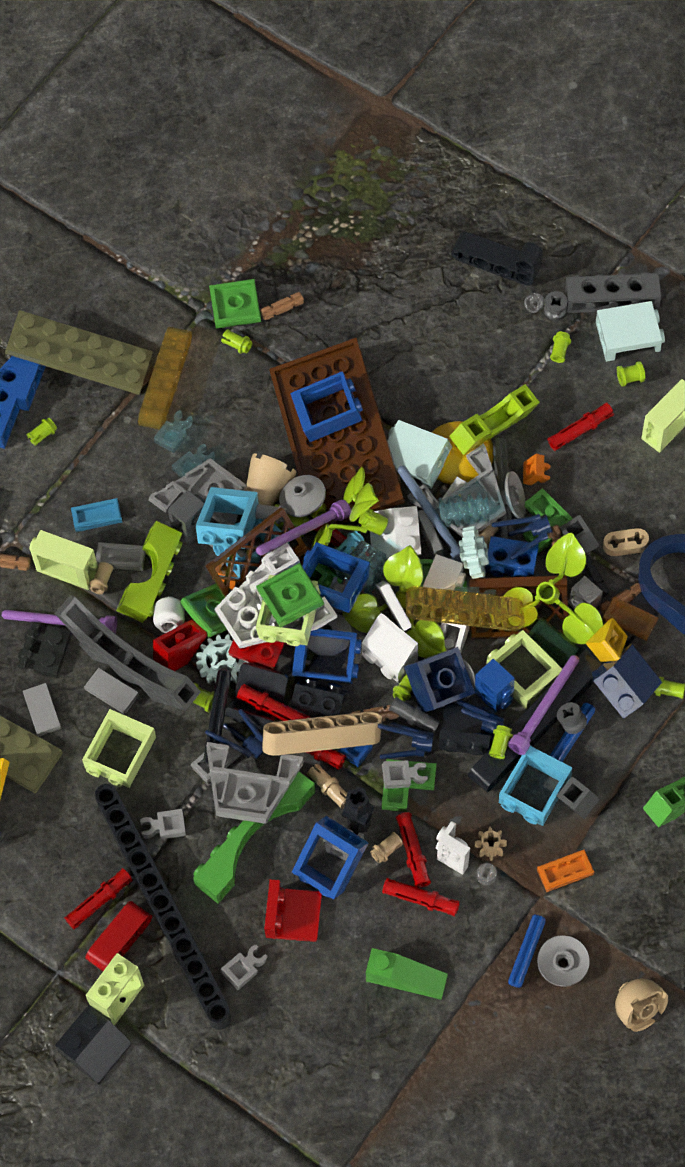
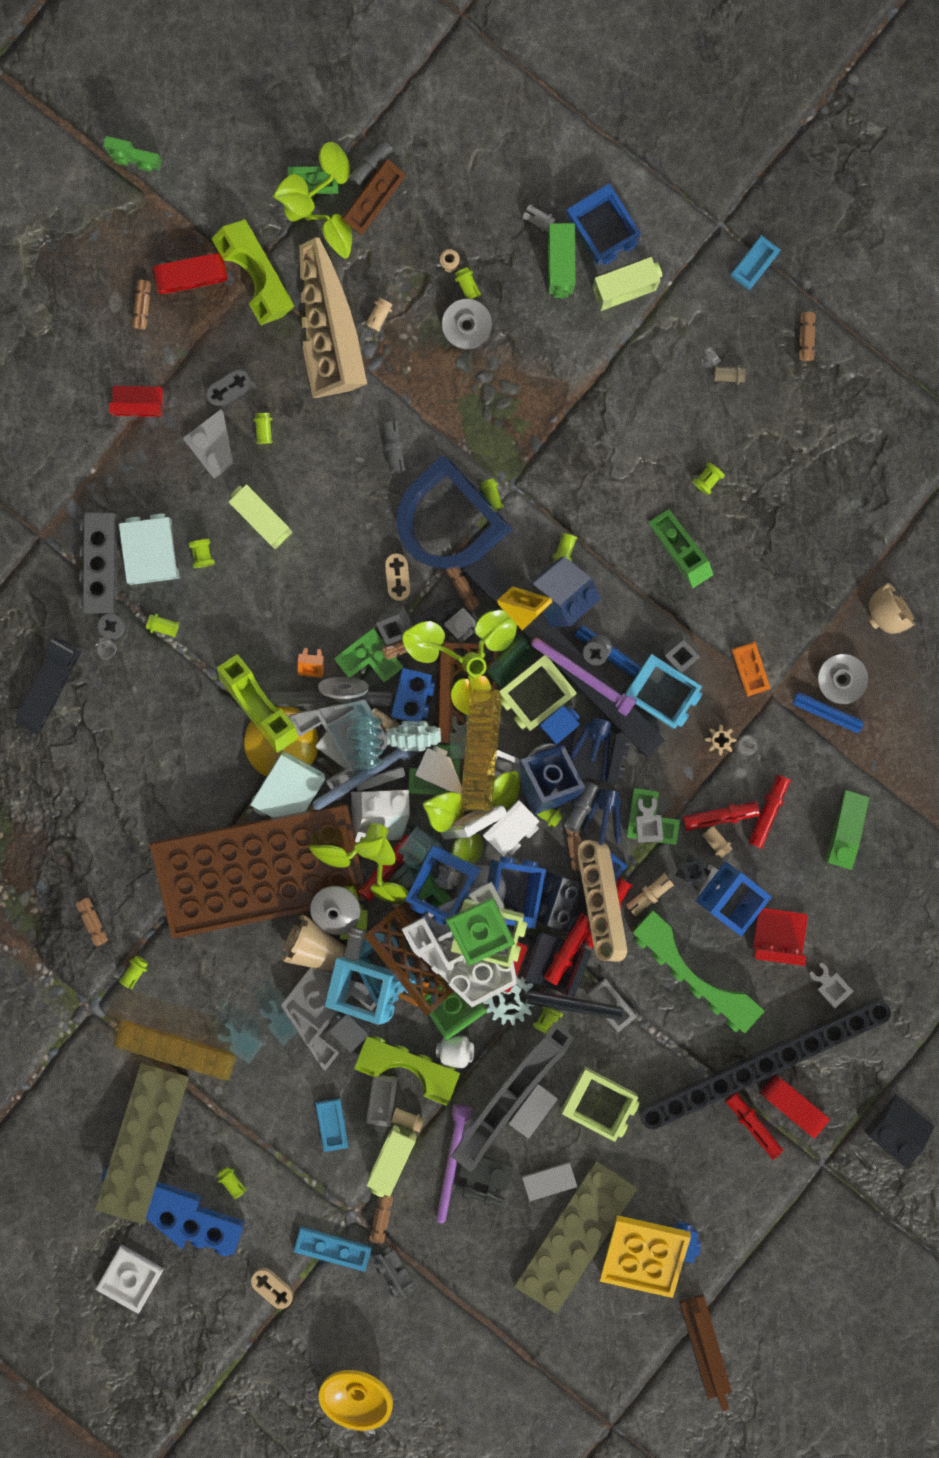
camera: 90 degrees left, 25 degrees up
(117, 981) = (856, 1111): yellowish green window -> none
(169, 824) = (680, 1056): light grey plate -> none
(178, 645) = (493, 1042): red slope -> none
(235, 303) = (86, 972): bright green plate -> none
(248, 794) = (665, 981): light grey wing -> none
(252, 745) = (603, 970): dark blue plant -> none
(322, 389) = (240, 903): blue window -> none
(338, 511) = (356, 873): medium lavender piece -> none
(353, 539) = (399, 863): medium azure pin -> none
(451, 850) = (732, 775): white bracket -> none
(500, 741) = (623, 723): lime pin -> none
(538, 525) = (388, 667): dark blue plant -> none
(588, 422) = (260, 611): red pin -> none
(631, 618) = (493, 581): clear orange tile -> none

